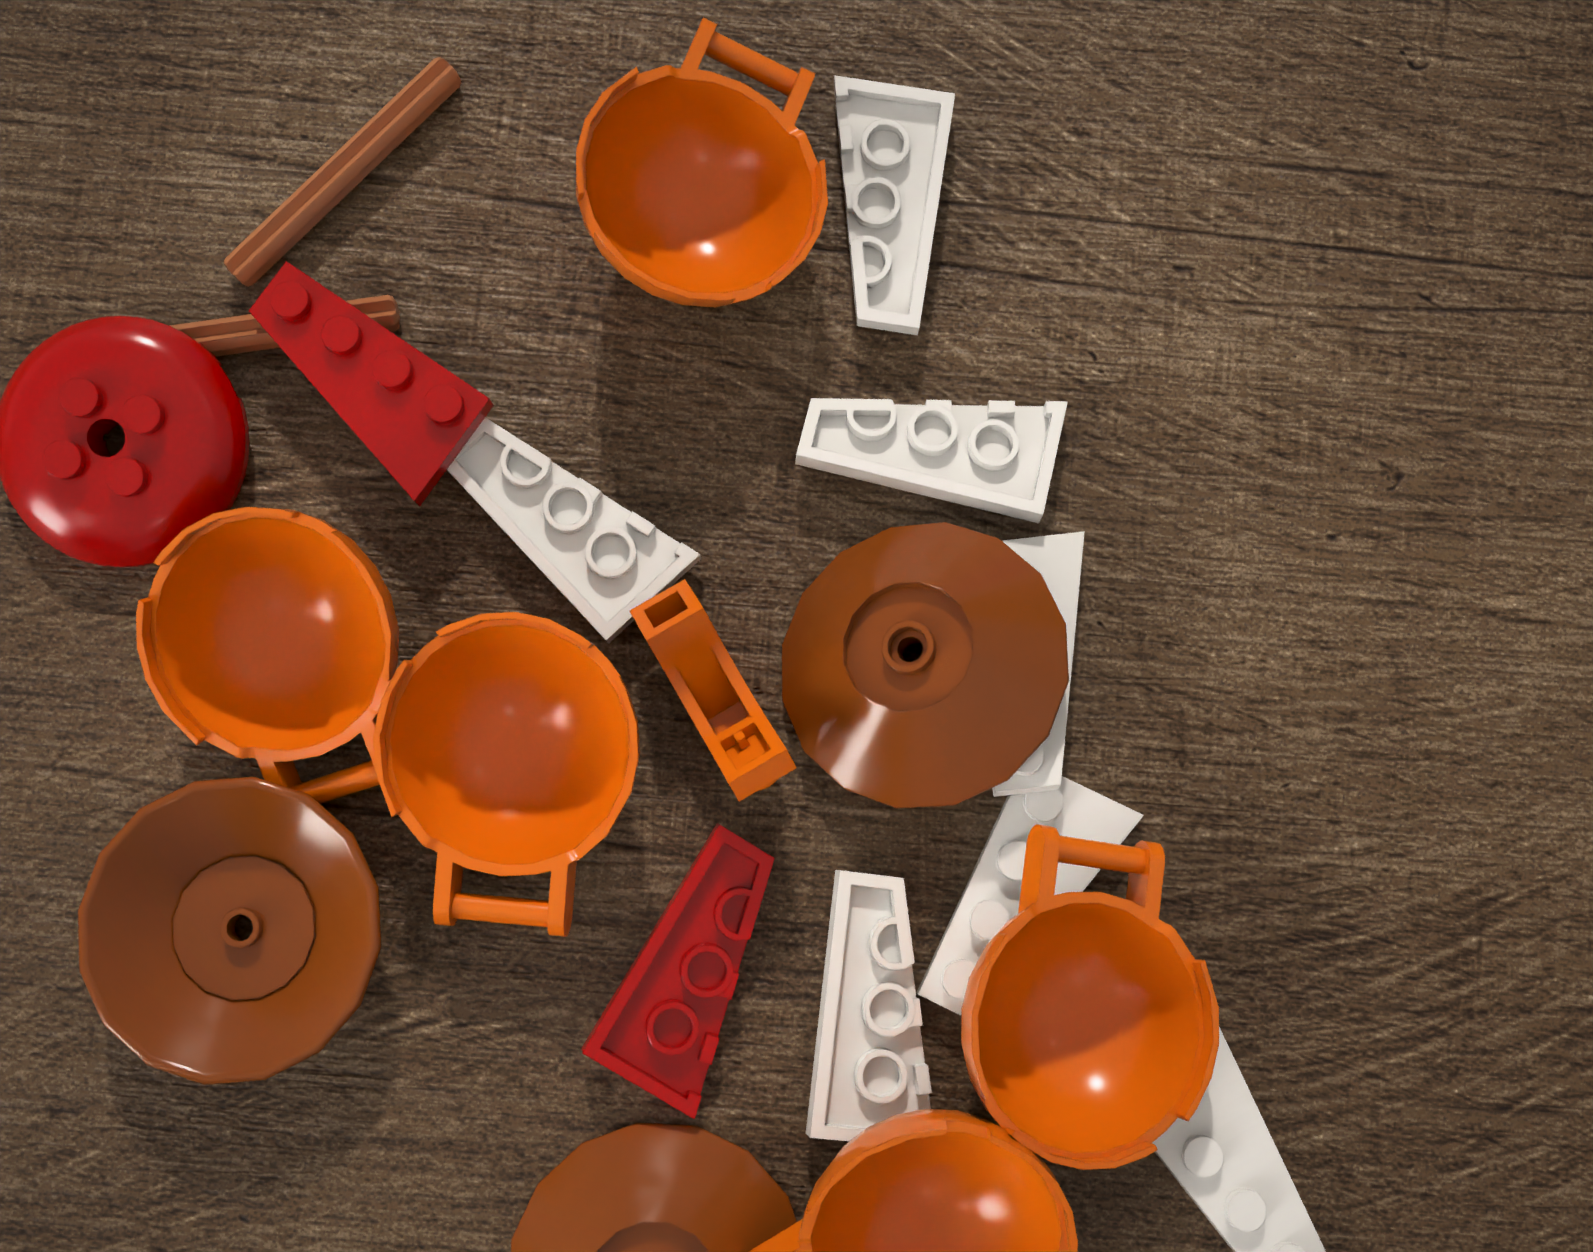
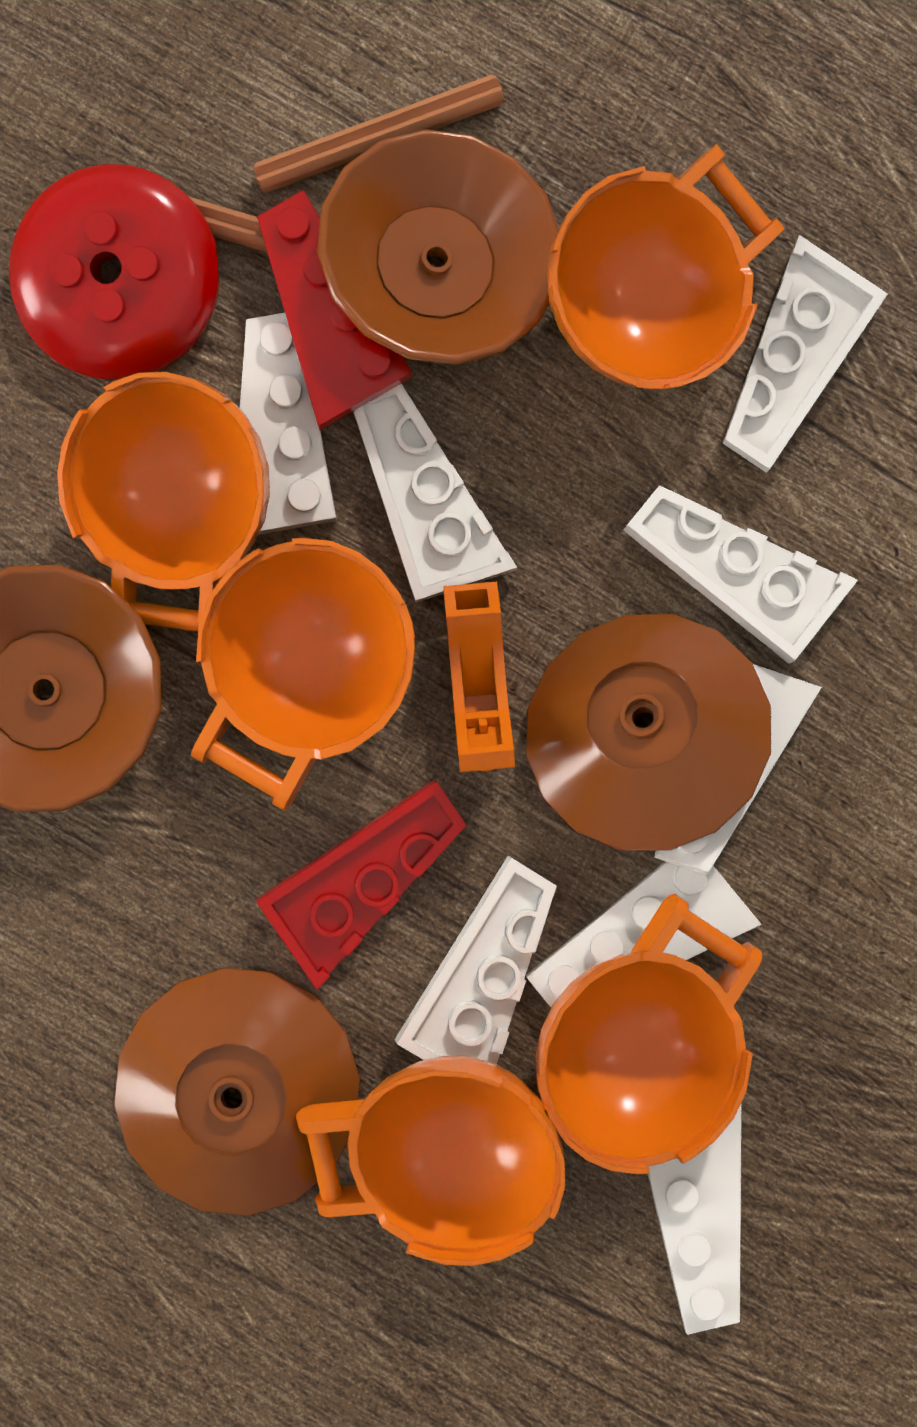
camera: 25 degrees right, 5 degrees up
(385, 522) = (284, 419): none -> white wing
(445, 206) = (447, 201): none -> dark orange dish

